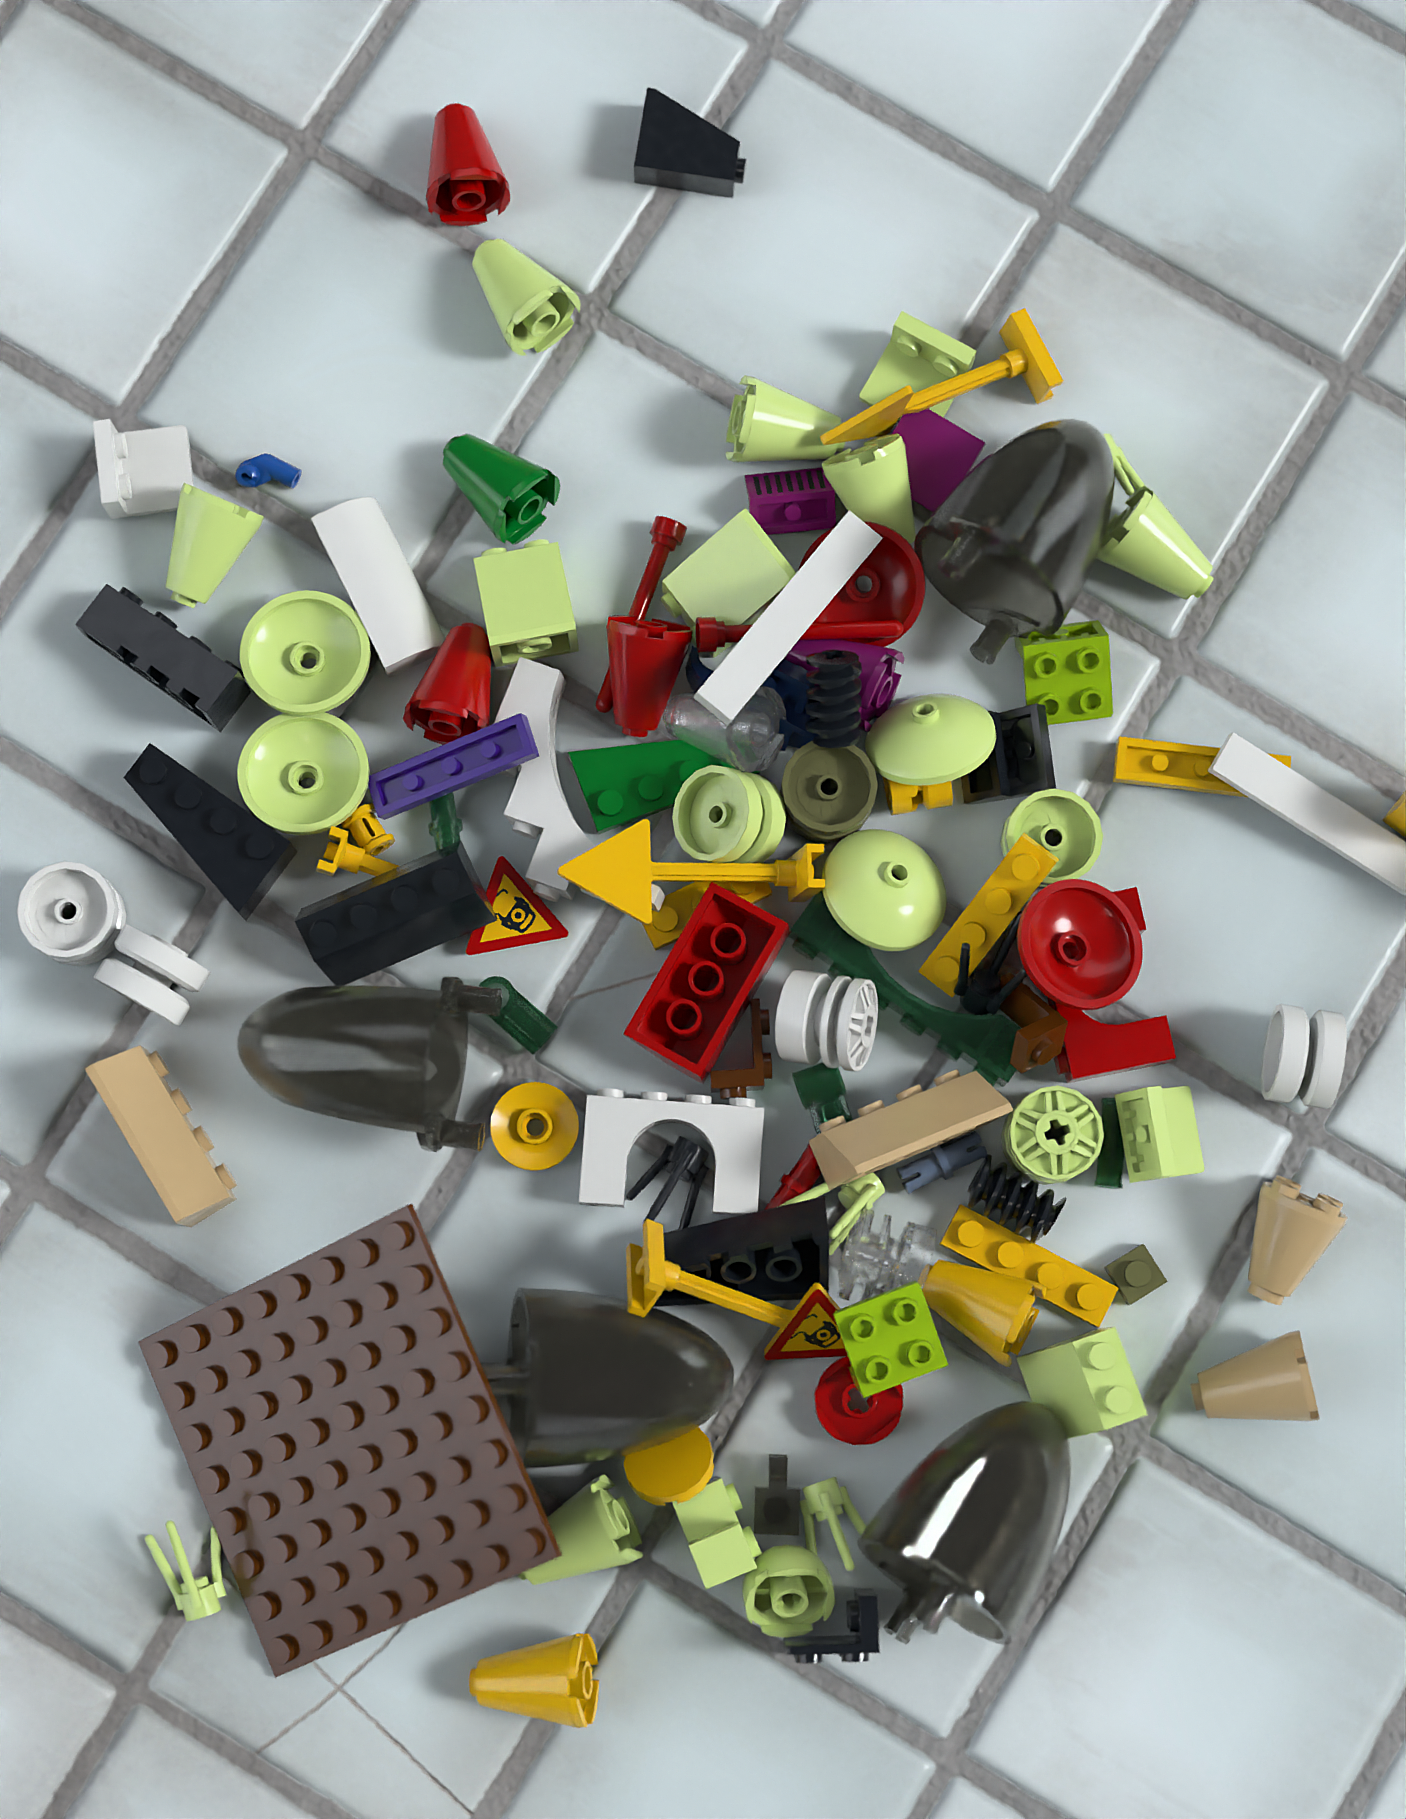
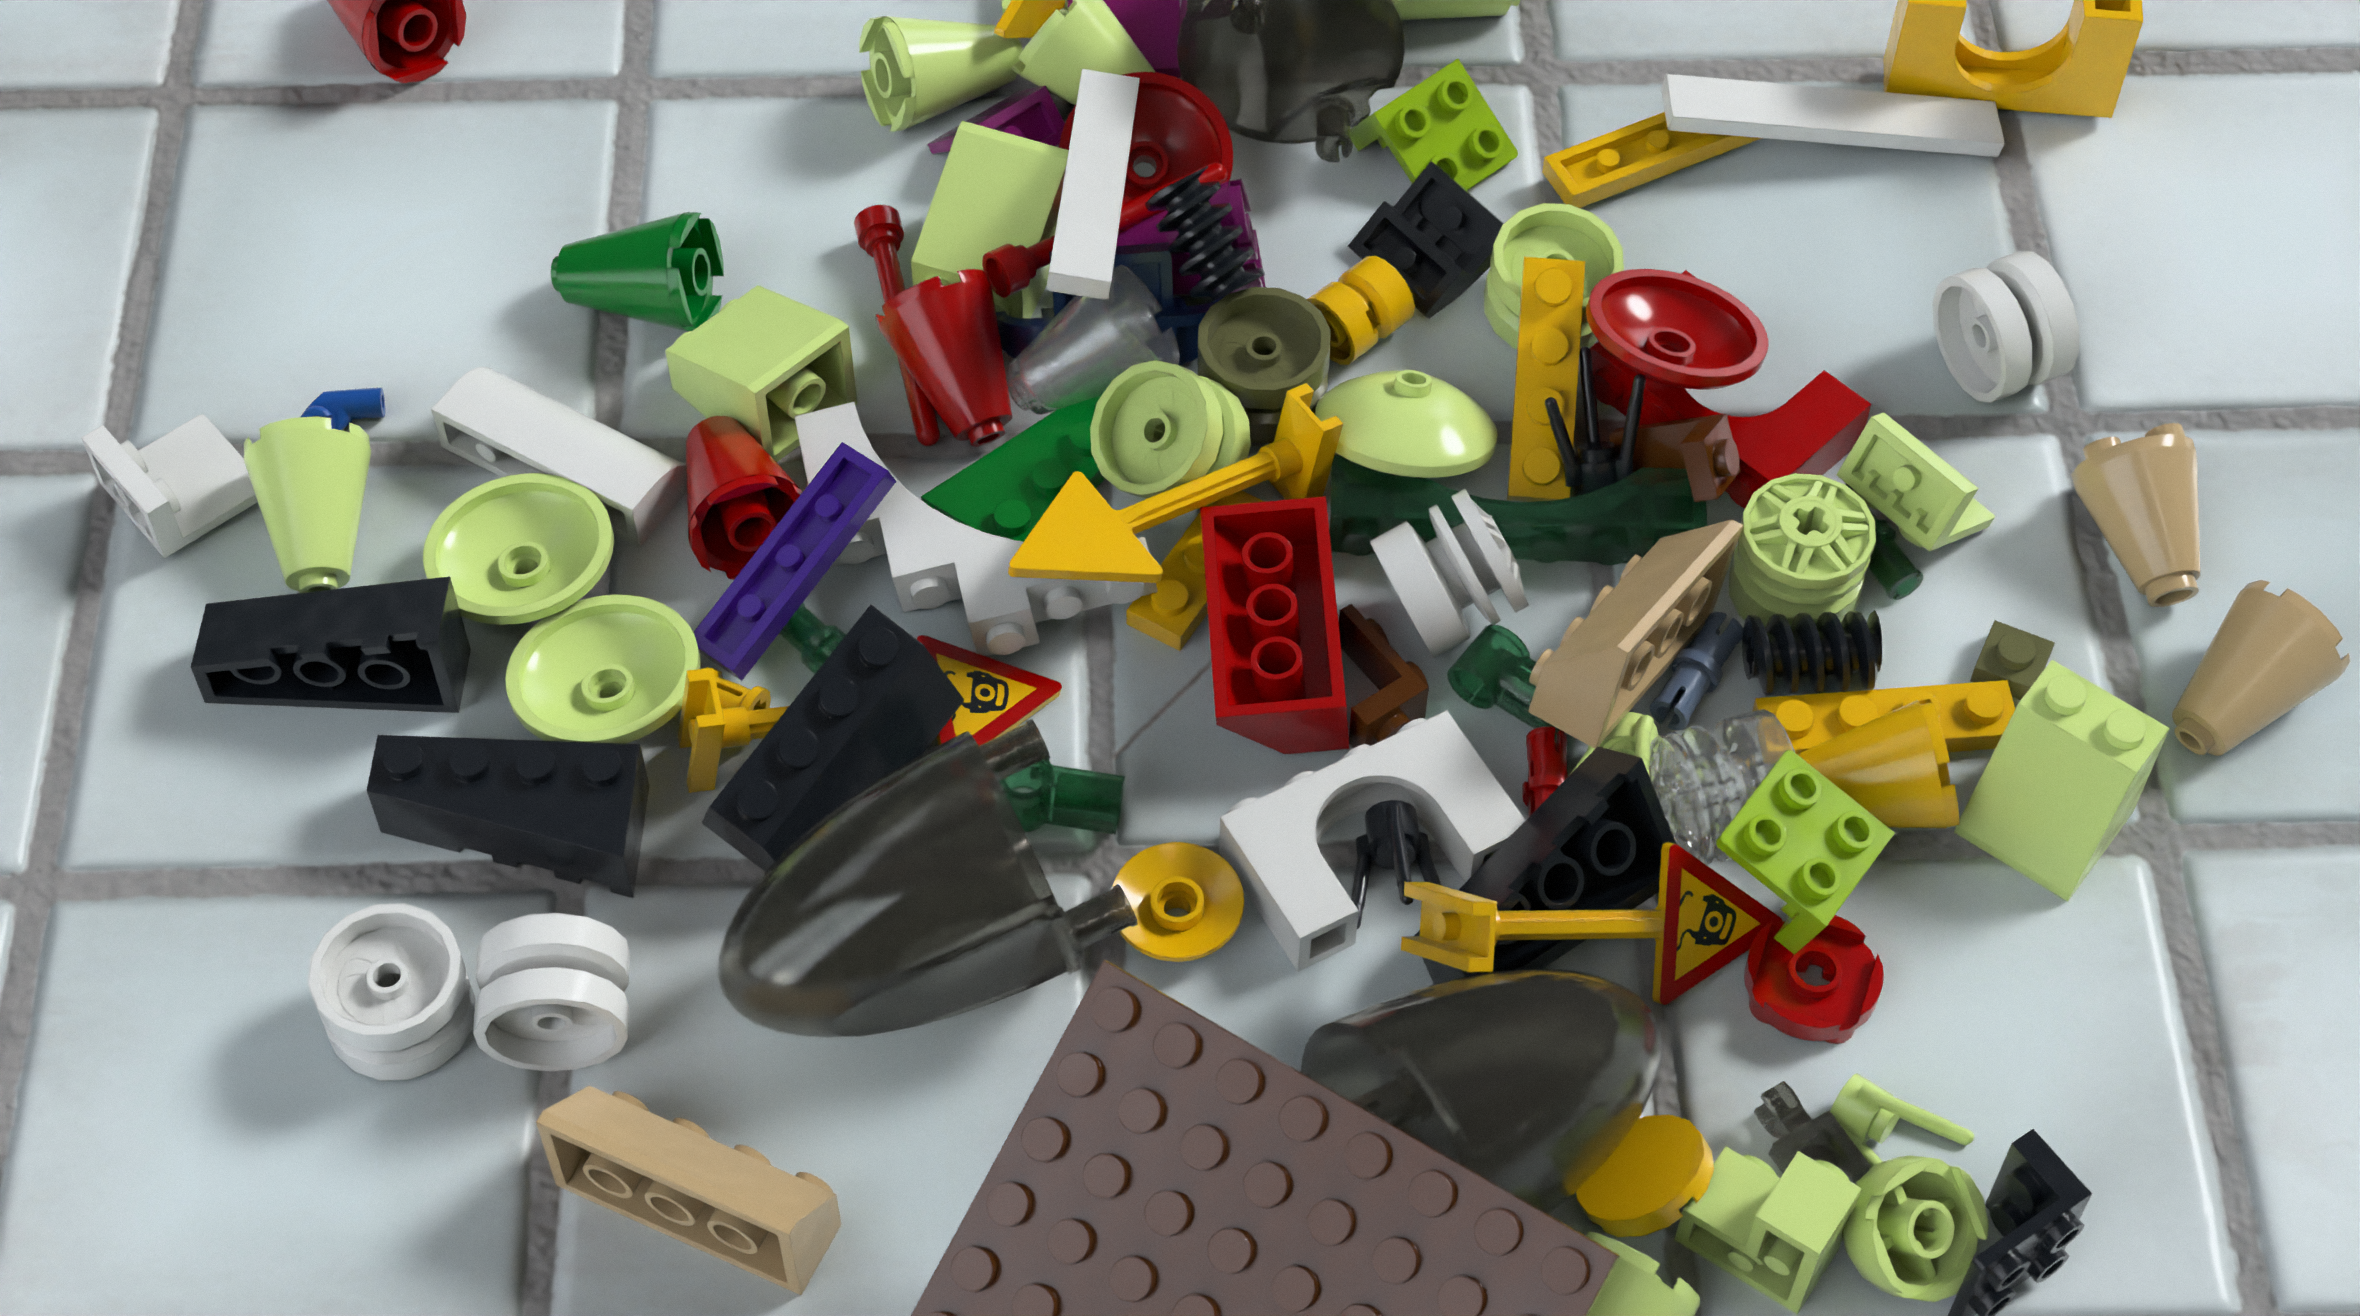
camera: 30 degrees left, 25 degrees down
(524, 297) = (547, 89): yellowish green cone -> none
(930, 739) = (1342, 244): yellowish green dish -> none
(975, 1524) = (2080, 1005): clear smoke windscreen -> none

